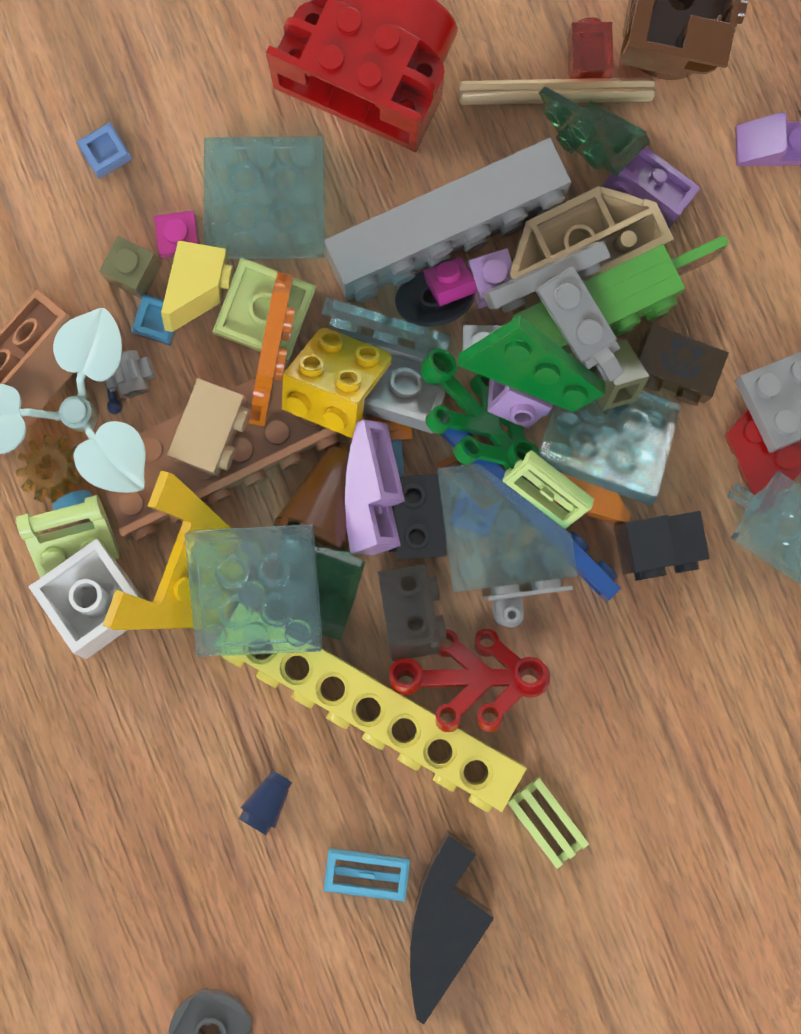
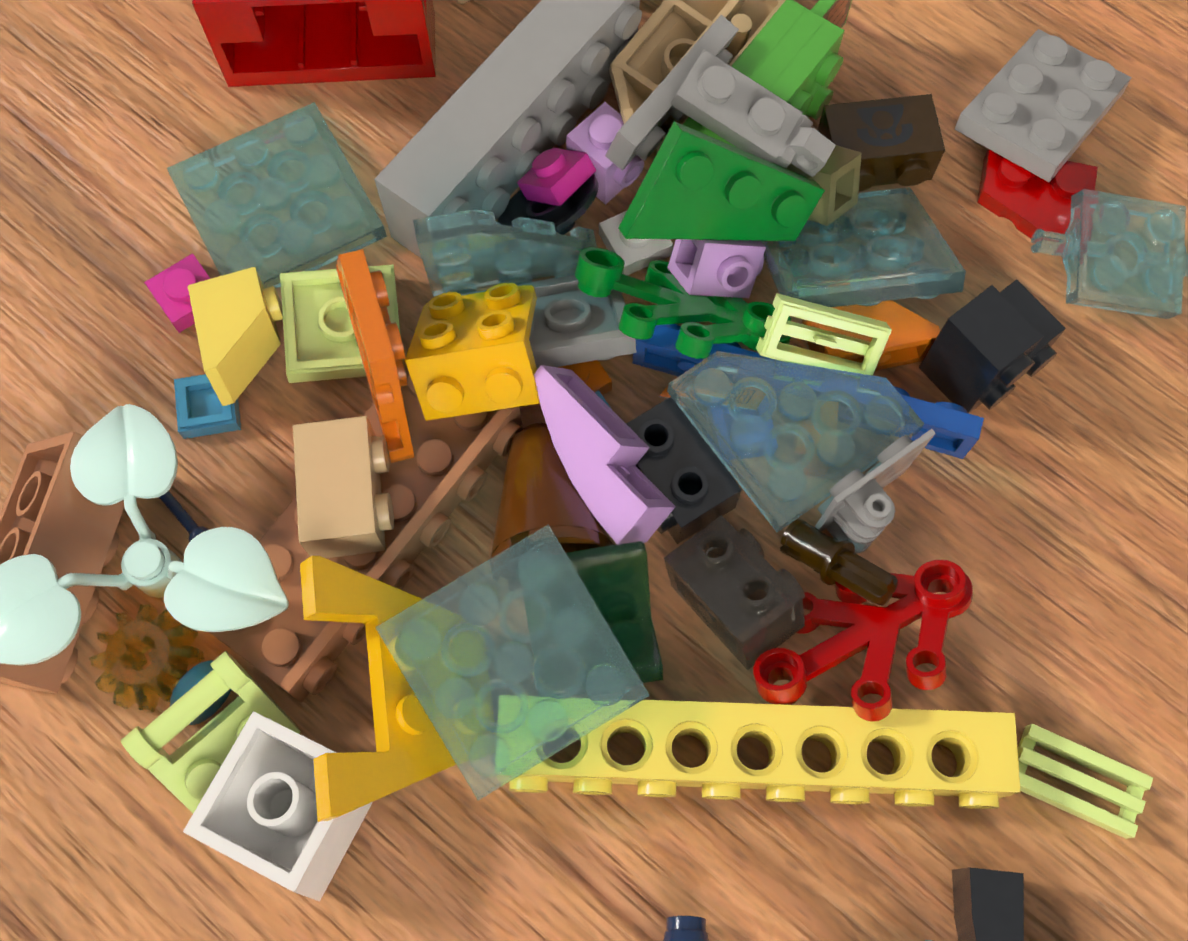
camera: 25 degrees left, 15 degrees down
(104, 150) = (45, 242): medium blue tile -> none
(130, 267) = (140, 351): olive brick -> none
(131, 375) = (202, 482): light grey gear -> none
(481, 627) = (837, 562): none -> dark brown axle

